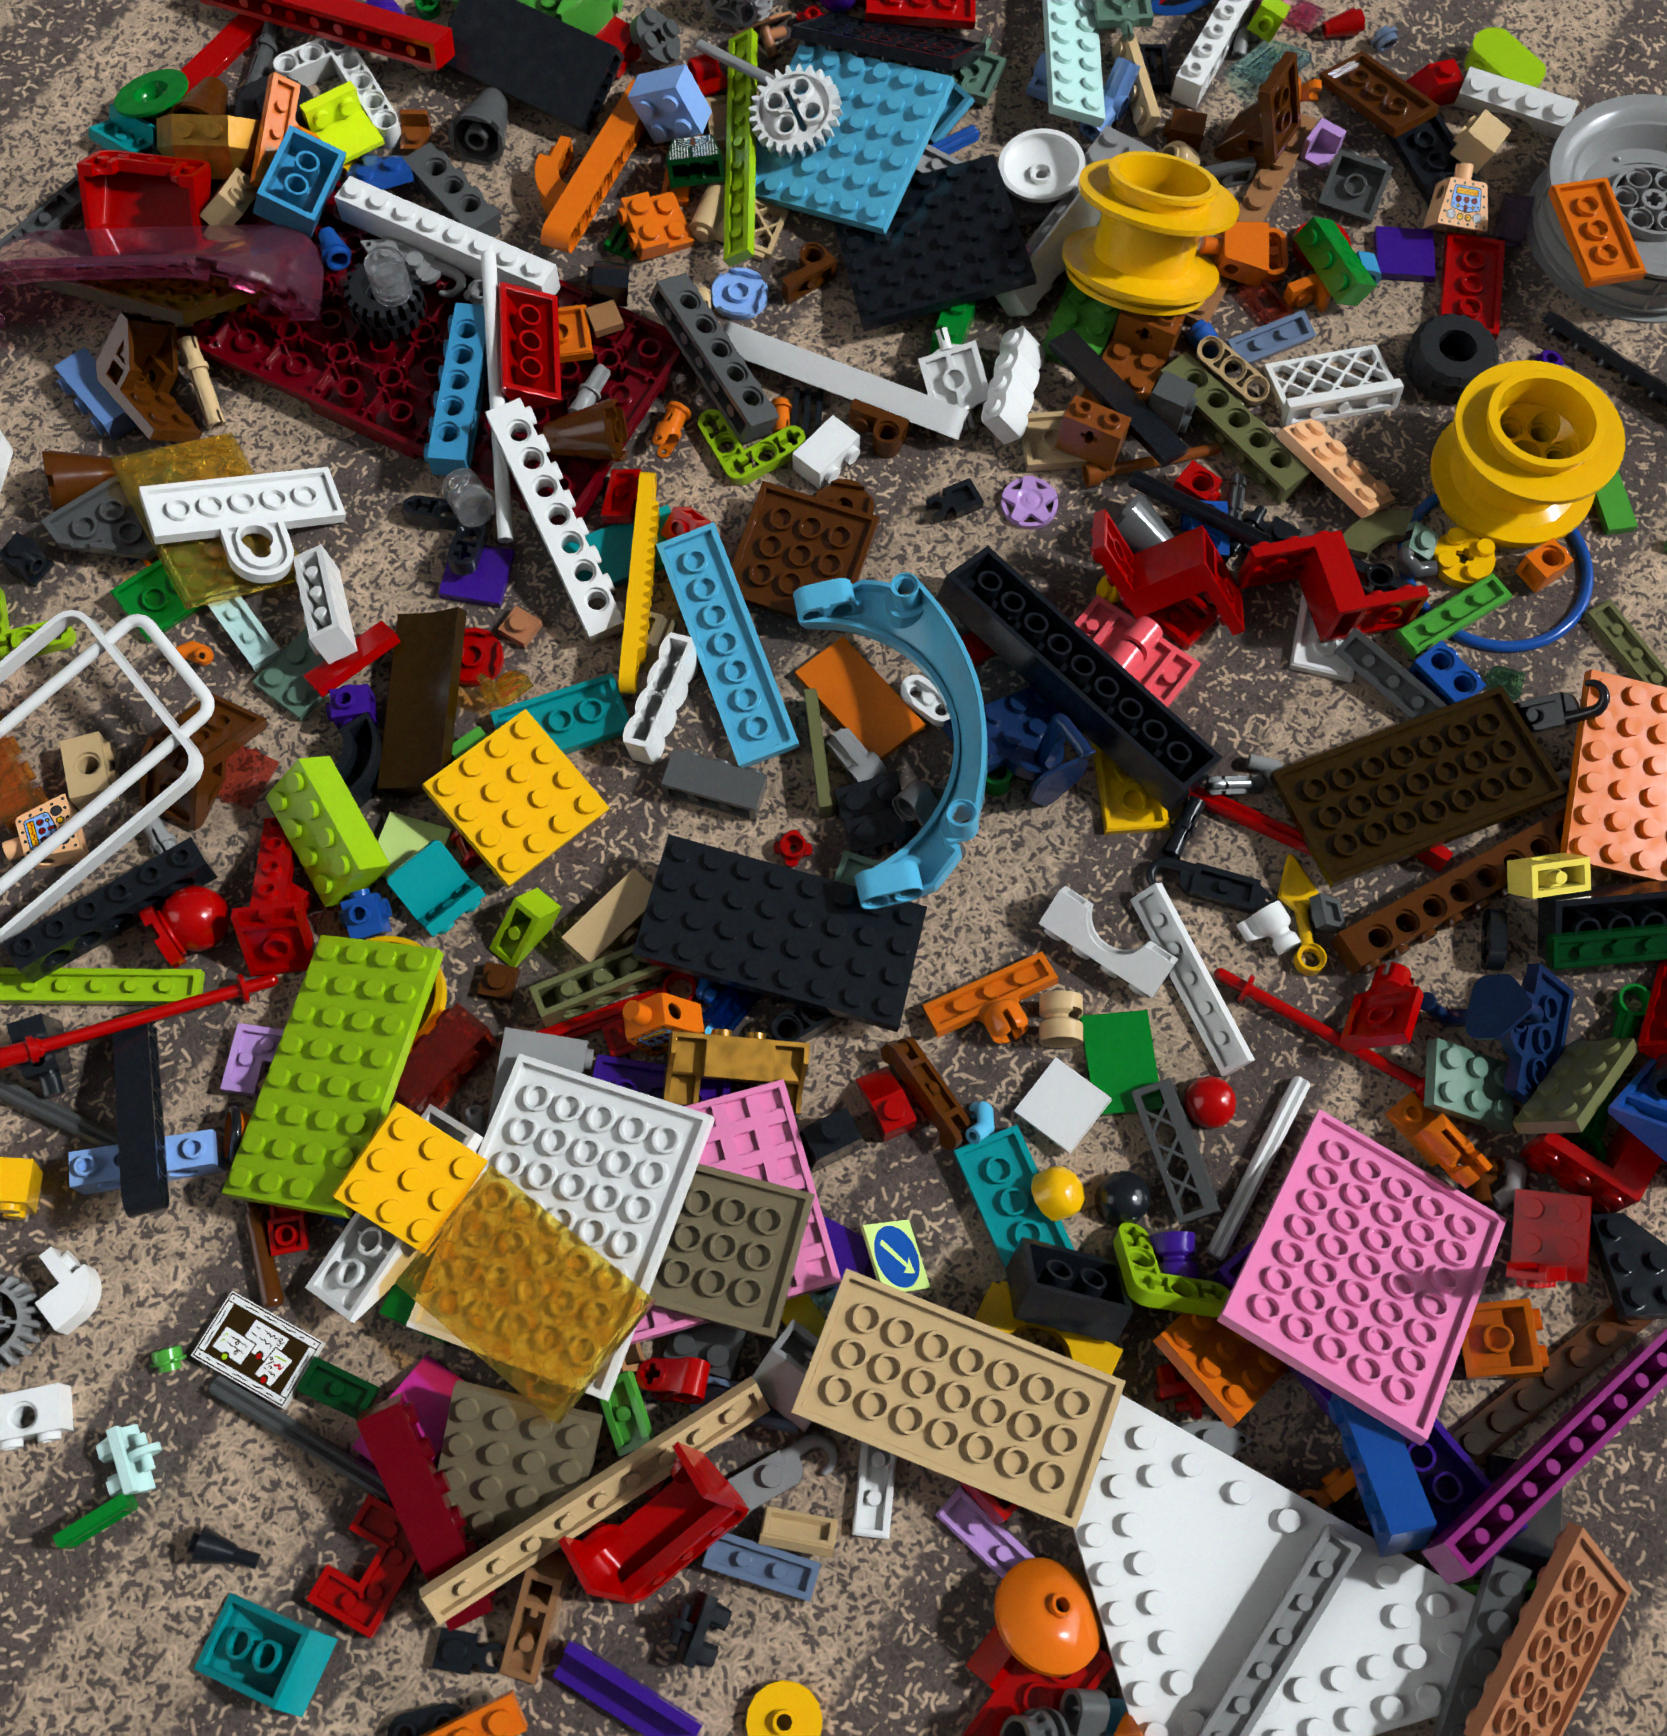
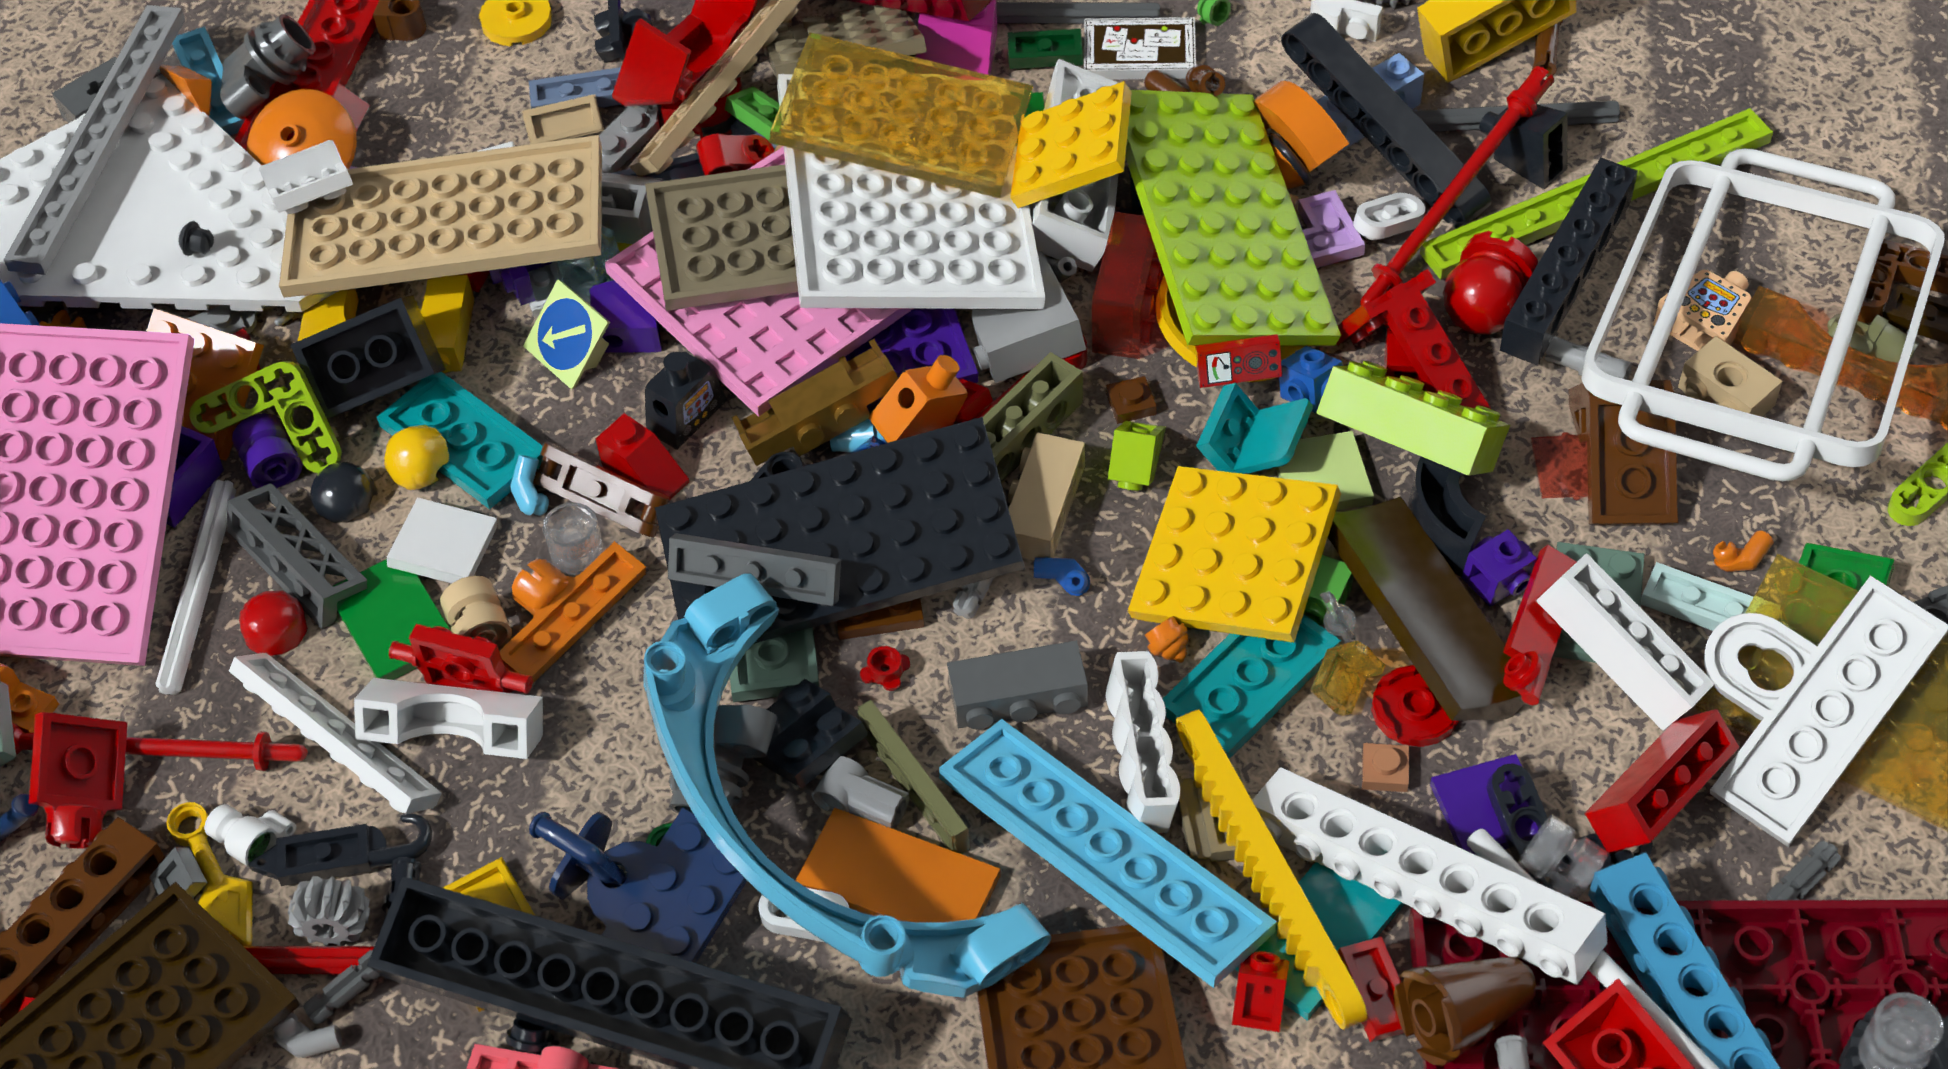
camera: 160 degrees right, 15 degrees down
(202, 1041) = (1388, 216): none -> white plate
(209, 1145) = (1301, 123): none -> orange arch
(242, 1249) = (1204, 75): none -> reddish brown pin
(335, 449) = (1806, 873): none -> dark grey axle
(375, 512) = (1662, 781): none -> red brick
(400, 615) = (1526, 675): none -> red plate
(411, 934) = (1238, 361): none -> red tile
(482, 718) = (1339, 618): none -> clear piece
(598, 773) = (1168, 640): none -> orange plate
(630, 857) = (1065, 572): none -> blue arm
(864, 923) = (778, 571): none -> dark grey plate
(966, 1047) = (572, 537): none -> clear wheel
(1067, 1489) = (306, 177): none -> white bracket
(1093, 976) = (458, 661): none -> red plate
(1183, 1499) = (195, 239): none -> black piece
(1233, 832) = (329, 911): none -> light grey gear

